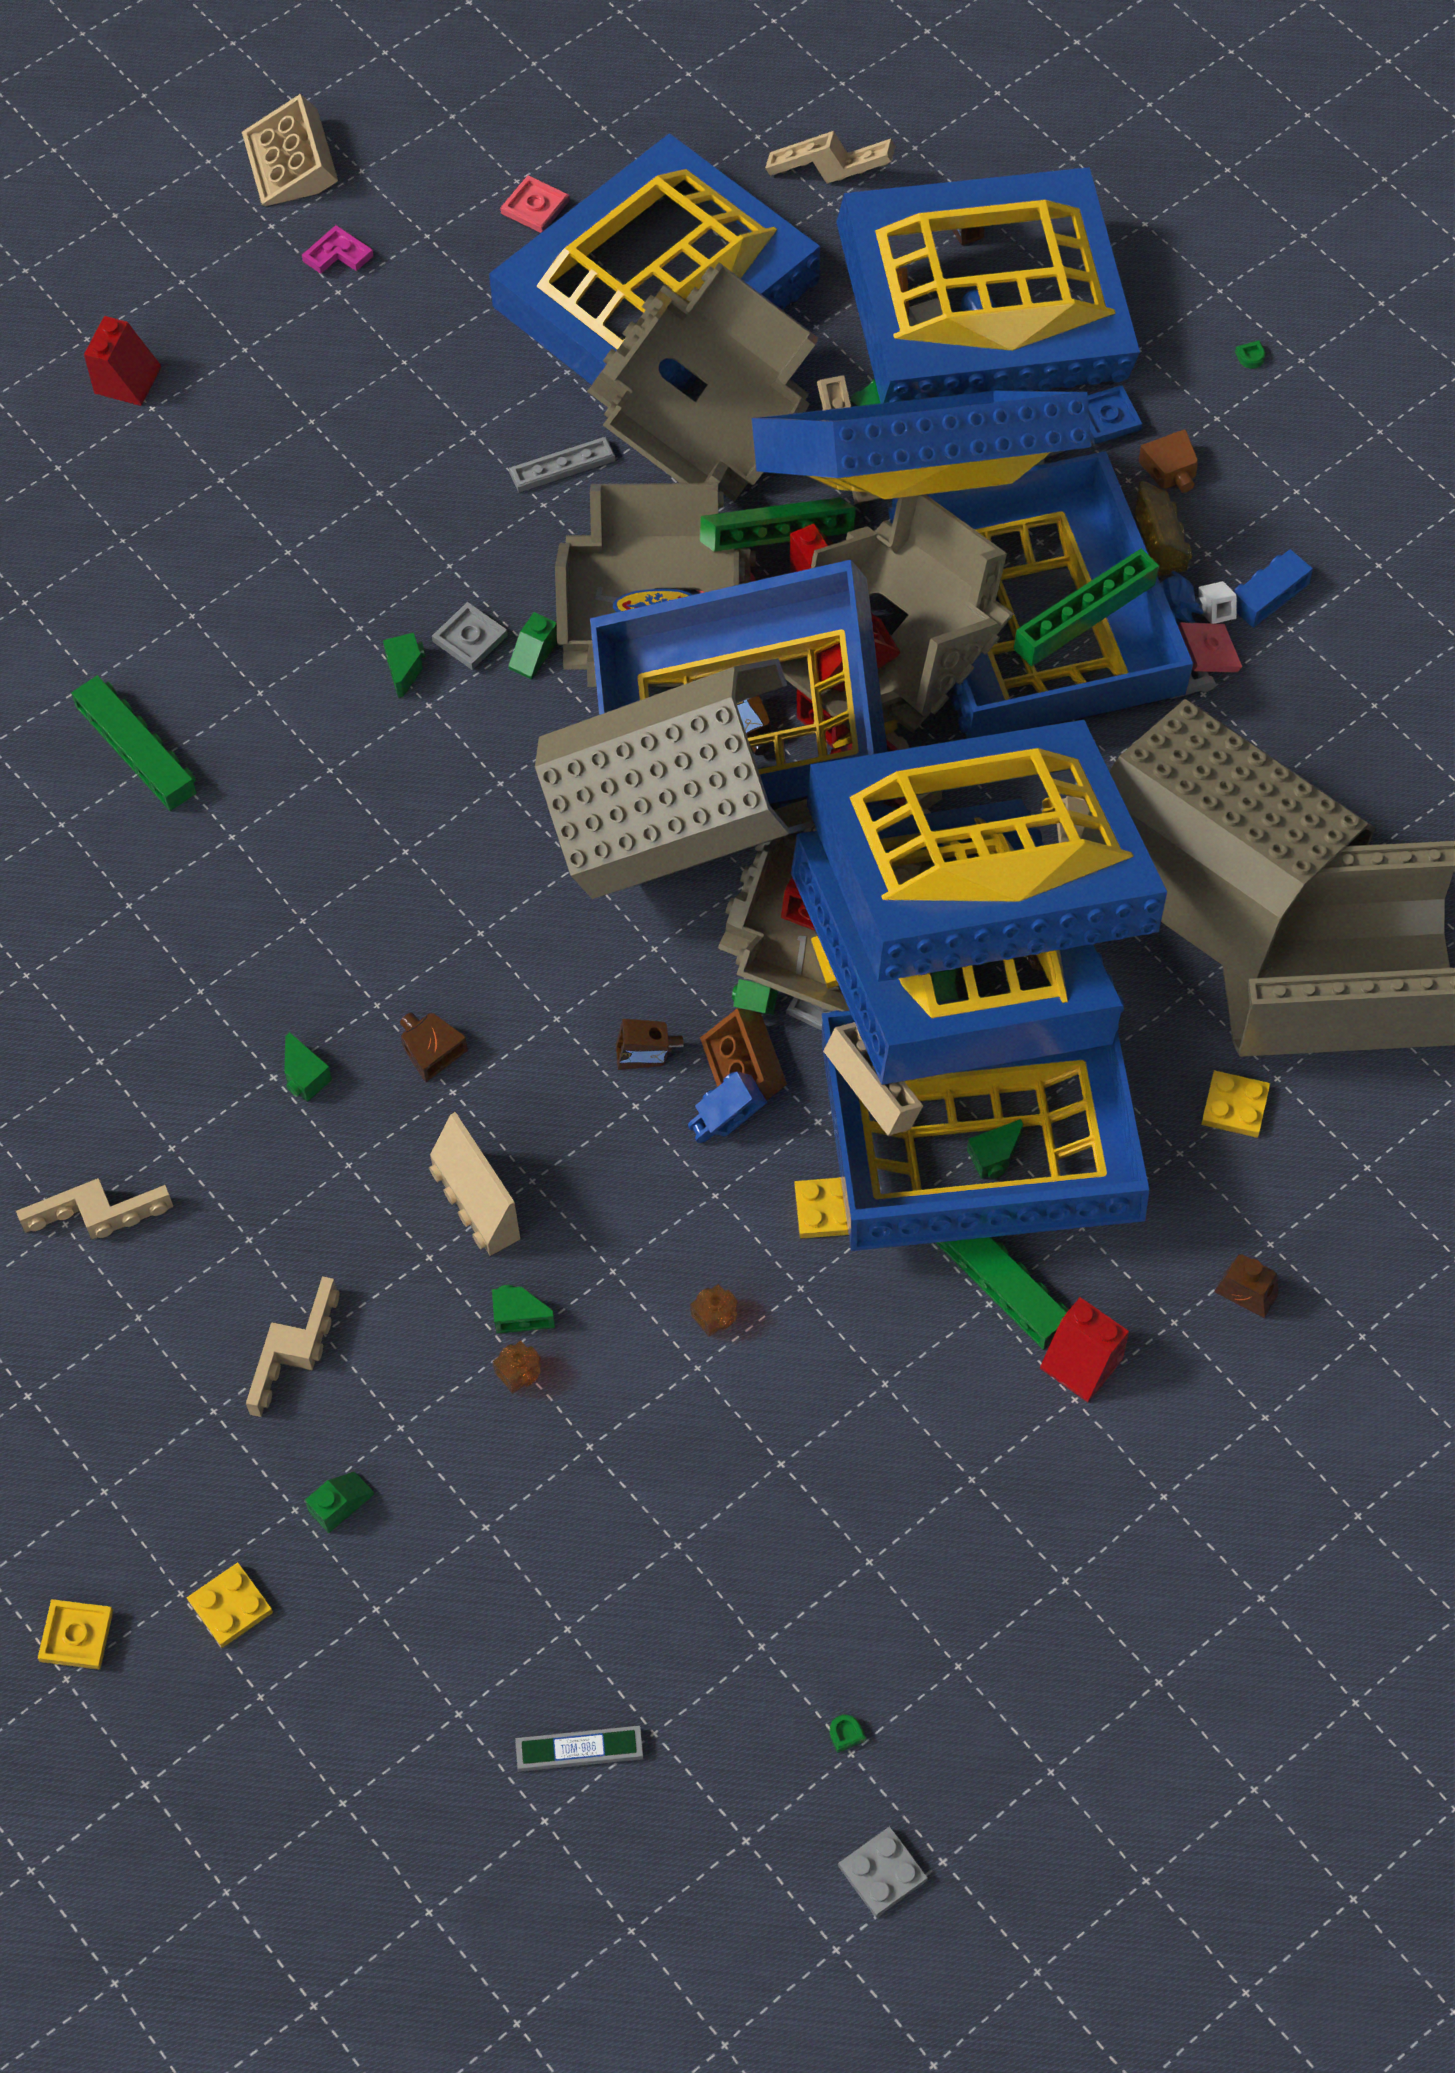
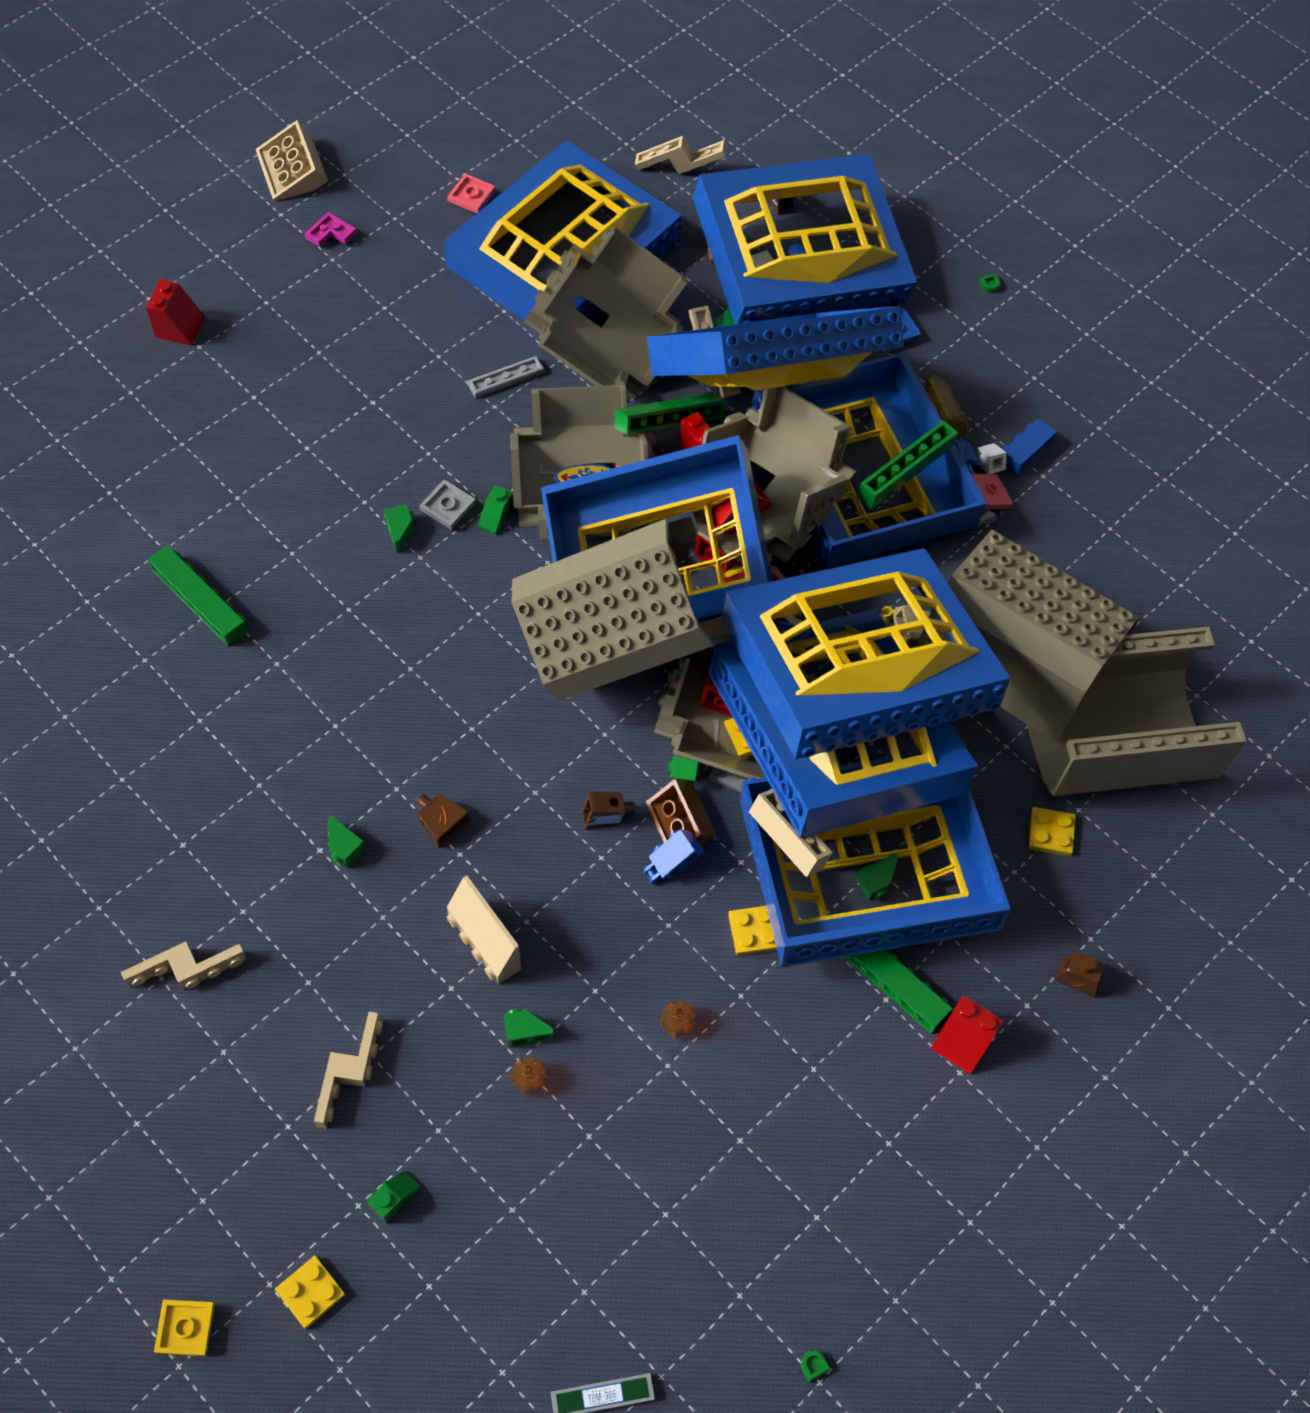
camera: 10 degrees left, 0 degrees up
(1170, 461) = (944, 359): dark orange torso -> none

